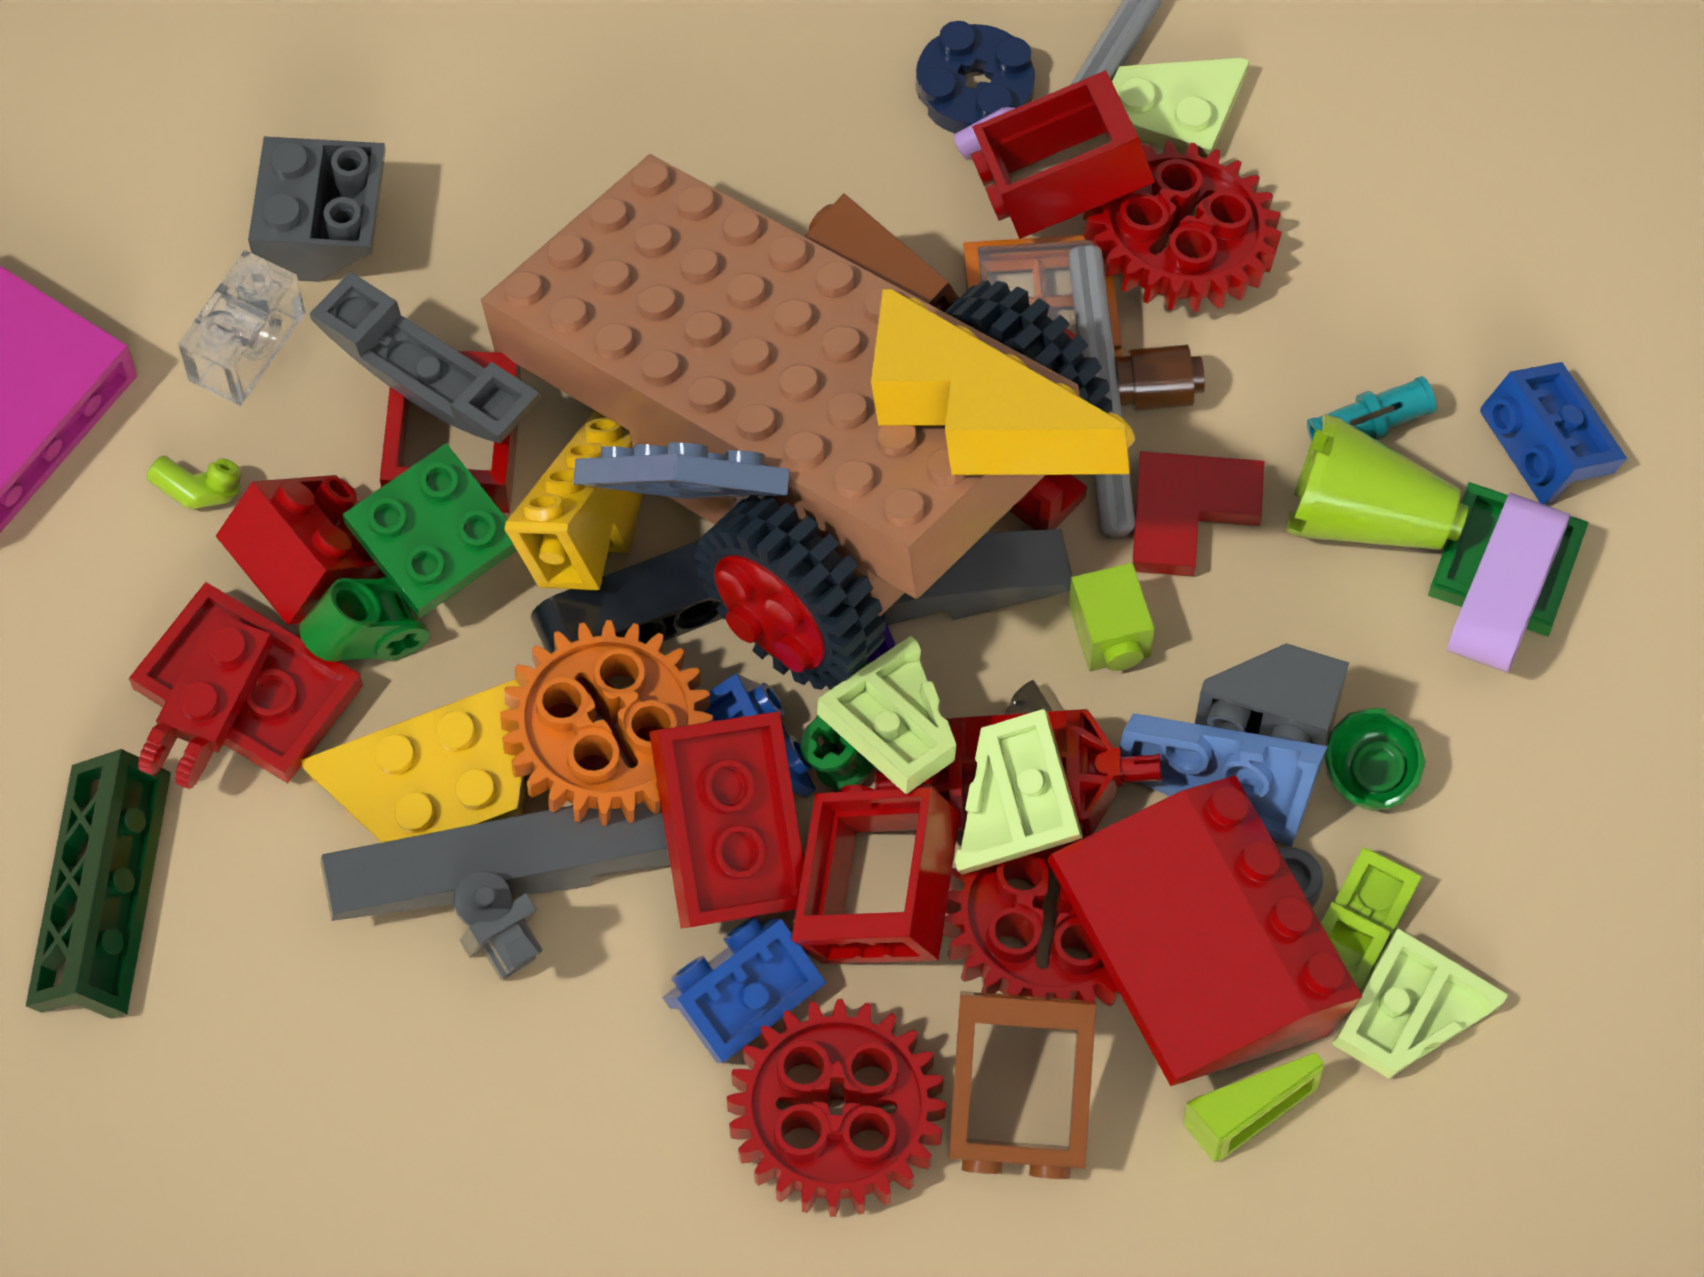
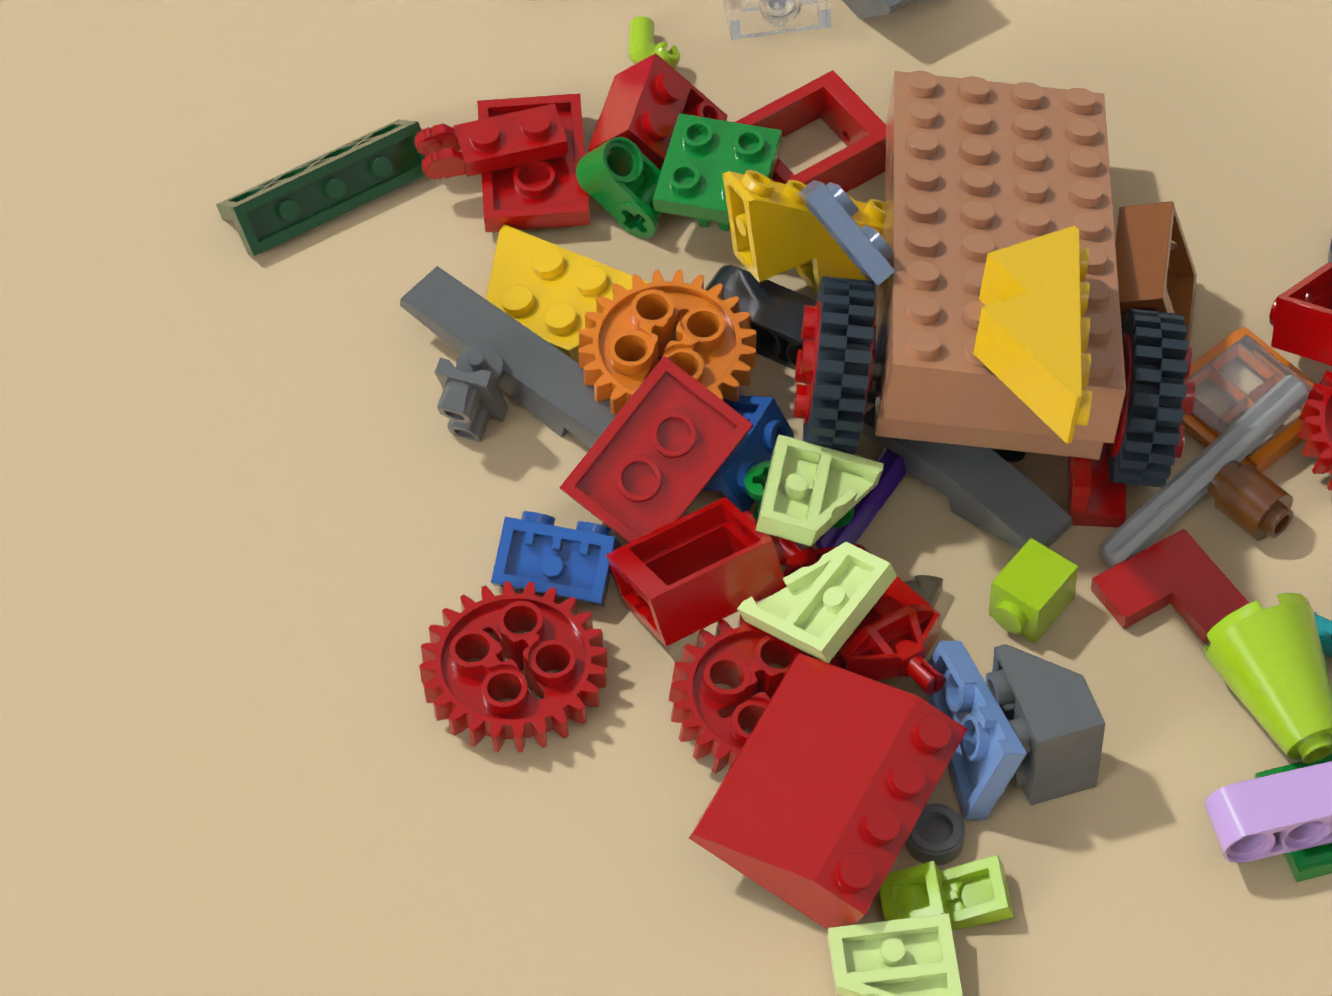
camera: 55 degrees right, 10 degrees down
(420, 365) = (828, 77): dark grey slope -> none
(1023, 1011) = (645, 786): dark orange window -> none
(1241, 1110) = (731, 912): lime slope -> none
(1374, 759) = (1071, 815): green hair -> none

